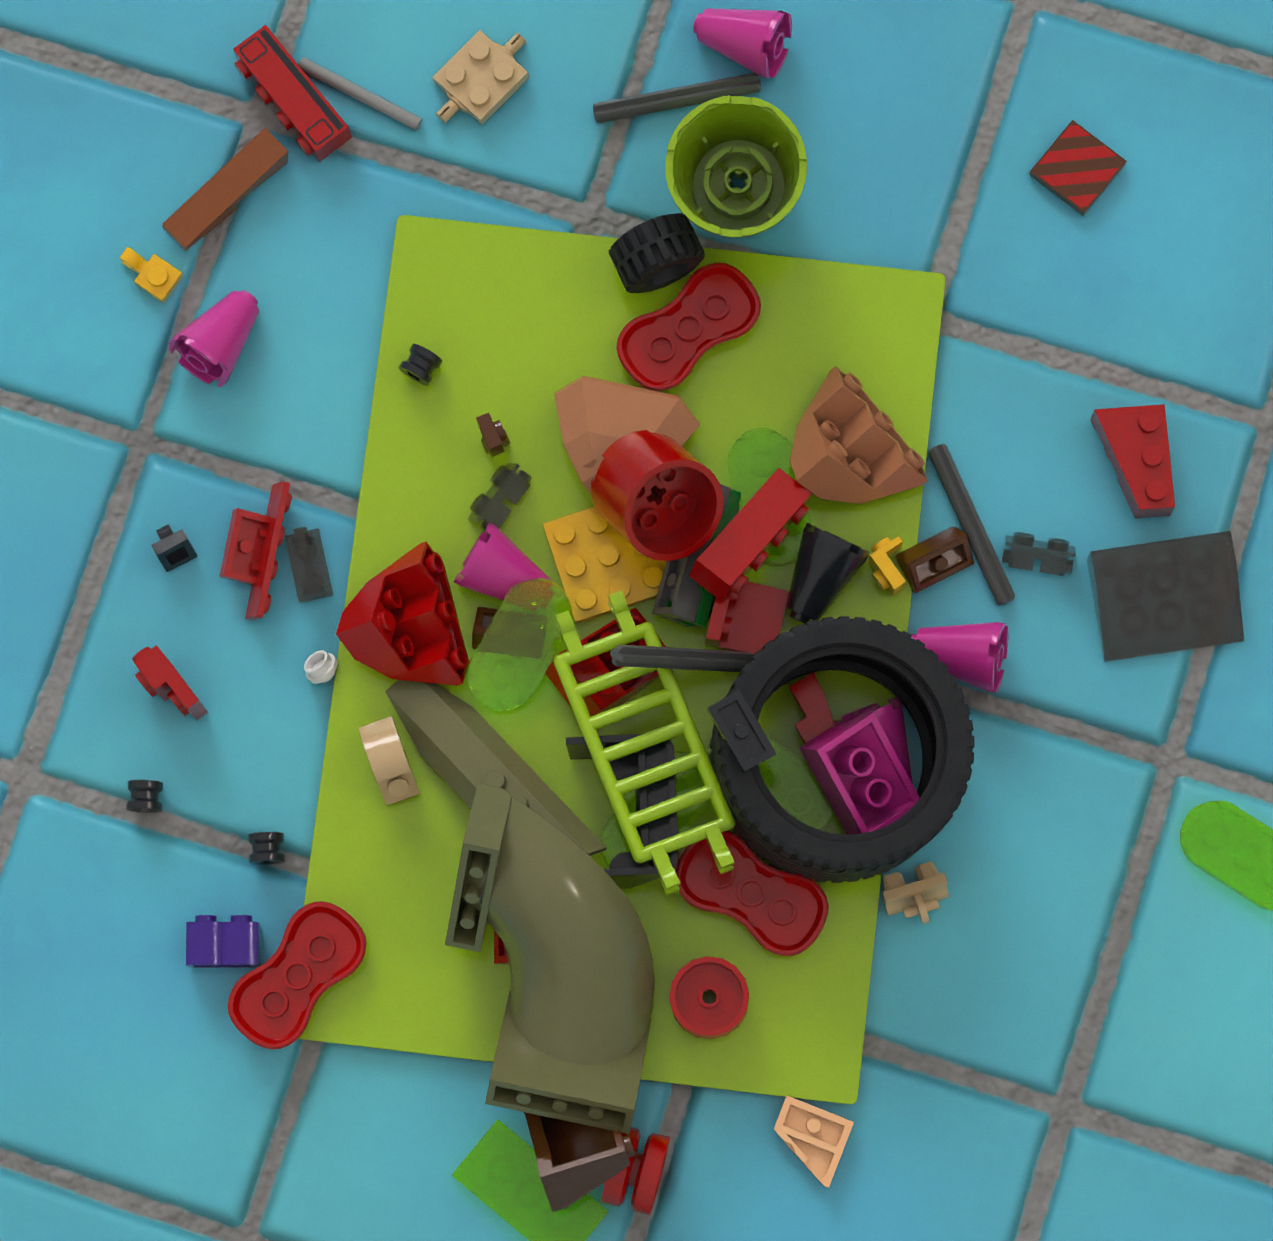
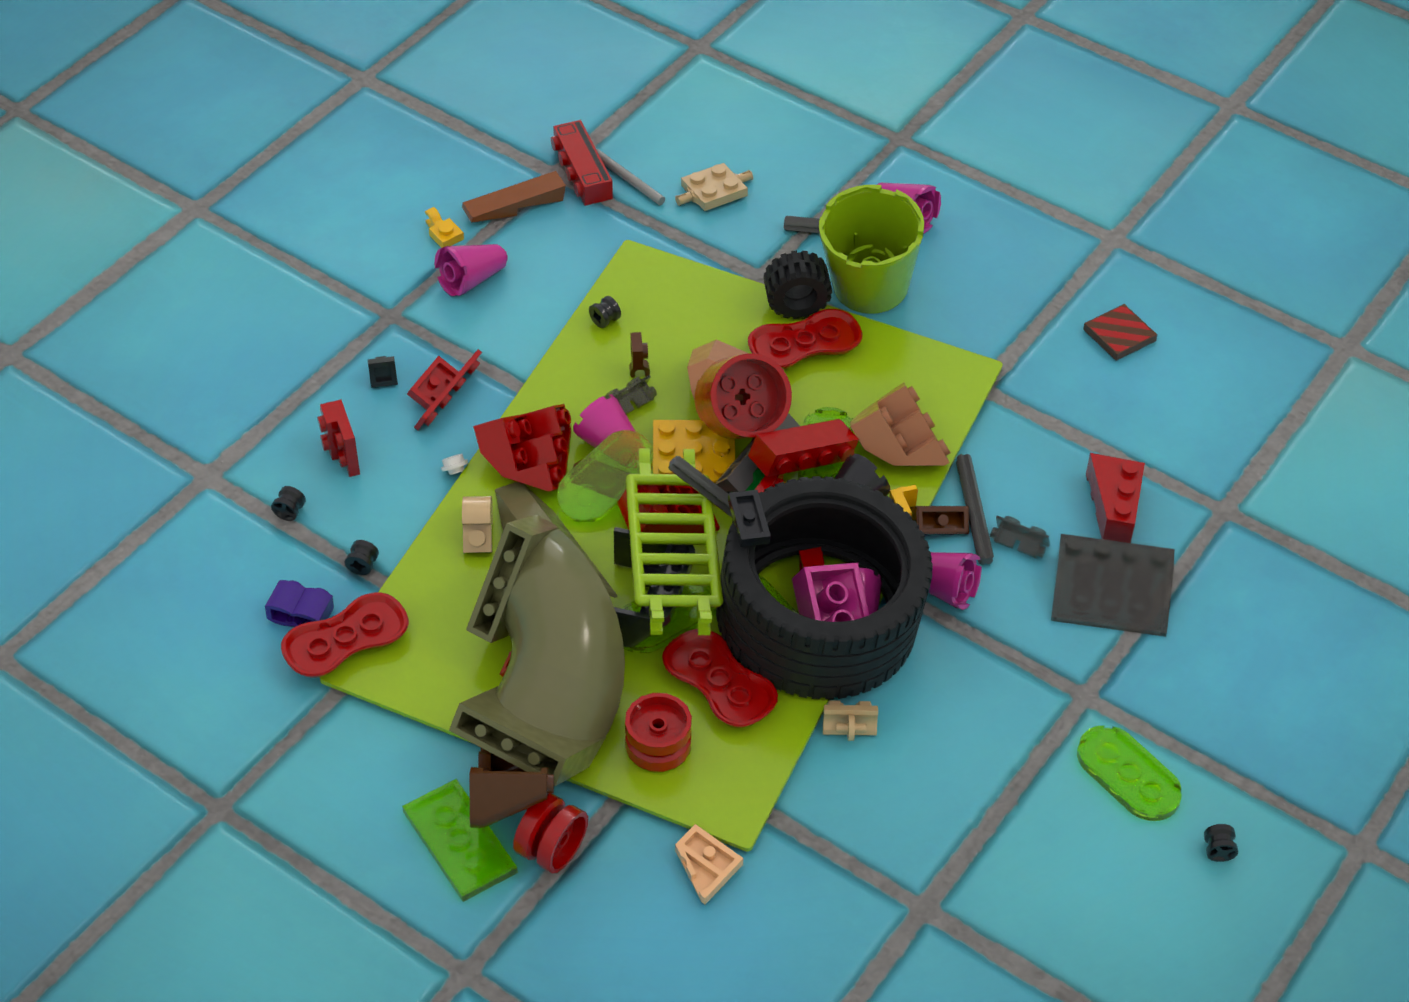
camera: 10 degrees right, 30 degrees down
(308, 564) = (473, 404): clear smoke hinge -> none

